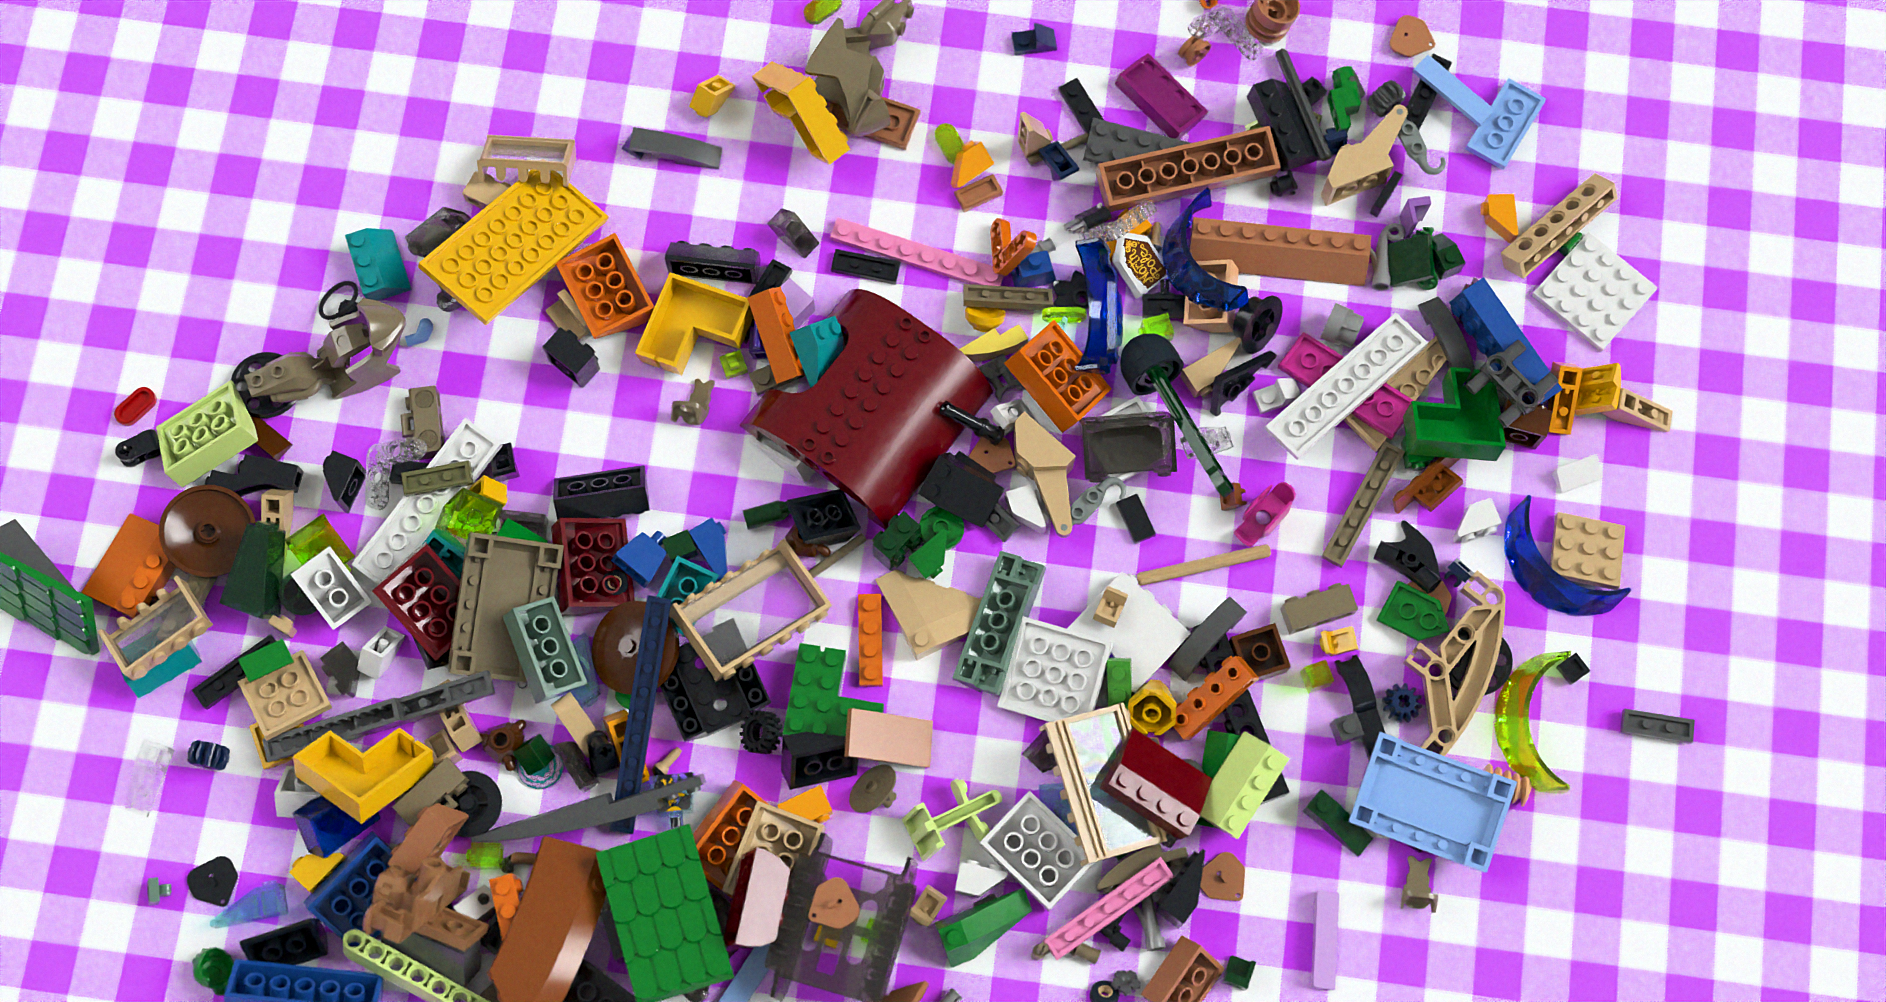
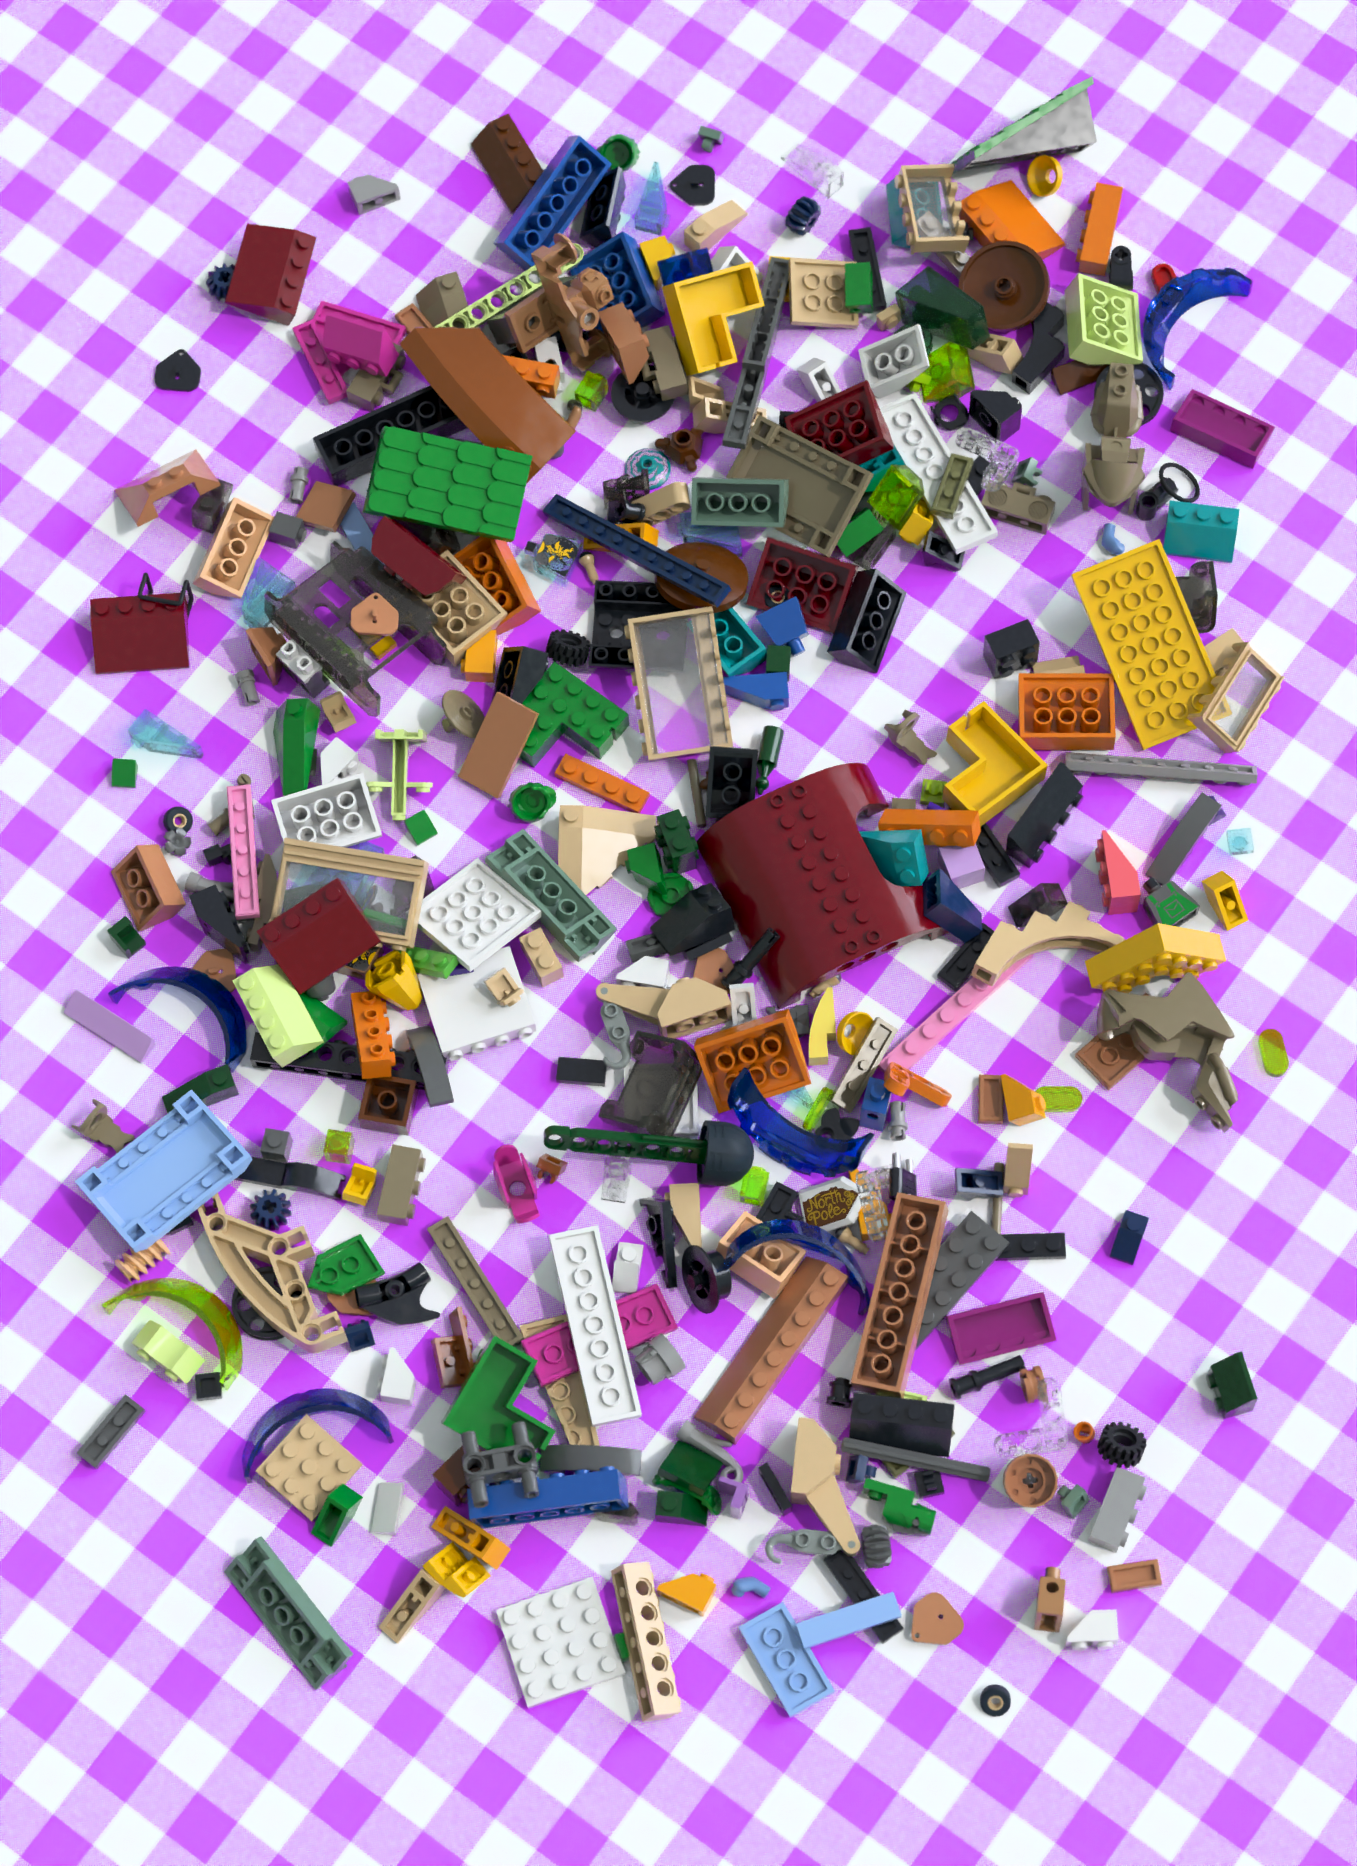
camera: 125 degrees right, 5 degrees down
(76, 561) = (1039, 173): none -> yellow piece
(103, 484) = (1100, 228): none -> orange brick
(154, 388) = (1177, 298): none -> clear blue windscreen
(254, 836) = (713, 226): none -> tan slope
(264, 293) = (1222, 428): none -> magenta slope
(342, 665) = (823, 346): clear smoke slope -> none
(352, 513) = (960, 421): none -> black piece
(387, 431) = (1025, 472): none -> tile
(534, 754) = (658, 461): dark green panel -> none
(592, 812) = (576, 481): dark grey slope -> none
(619, 196) = (1170, 769): none -> light grey plate
(653, 107) = (1240, 841): none -> clear light blue plate
(741, 134) = (1168, 903): none -> torso
(741, 176) = (1117, 877): none -> coral slope
(837, 291) = (950, 907): none -> dark blue slope
(843, 229) = (1040, 934): none -> tan arch
(907, 960) = (302, 668): none -> white hips
(923, 687) = (531, 801): none -> green hair
(995, 772) = (420, 827): none -> green slope
(1058, 600) = (541, 957): none -> tan brick
(1203, 564) = (502, 1108): tan axle -> none
(1214, 94) = (976, 1380): none -> black pin
(1248, 885) = (210, 991): none -> clear blue windscreen
(1466, 178) = (750, 1584): none -> medium blue arm
(1569, 708) = (168, 1352): none -> yellowish green brick
(1608, 507) = (336, 1514): none -> green slope
(1705, 502) = (289, 1613): none -> sand green slope

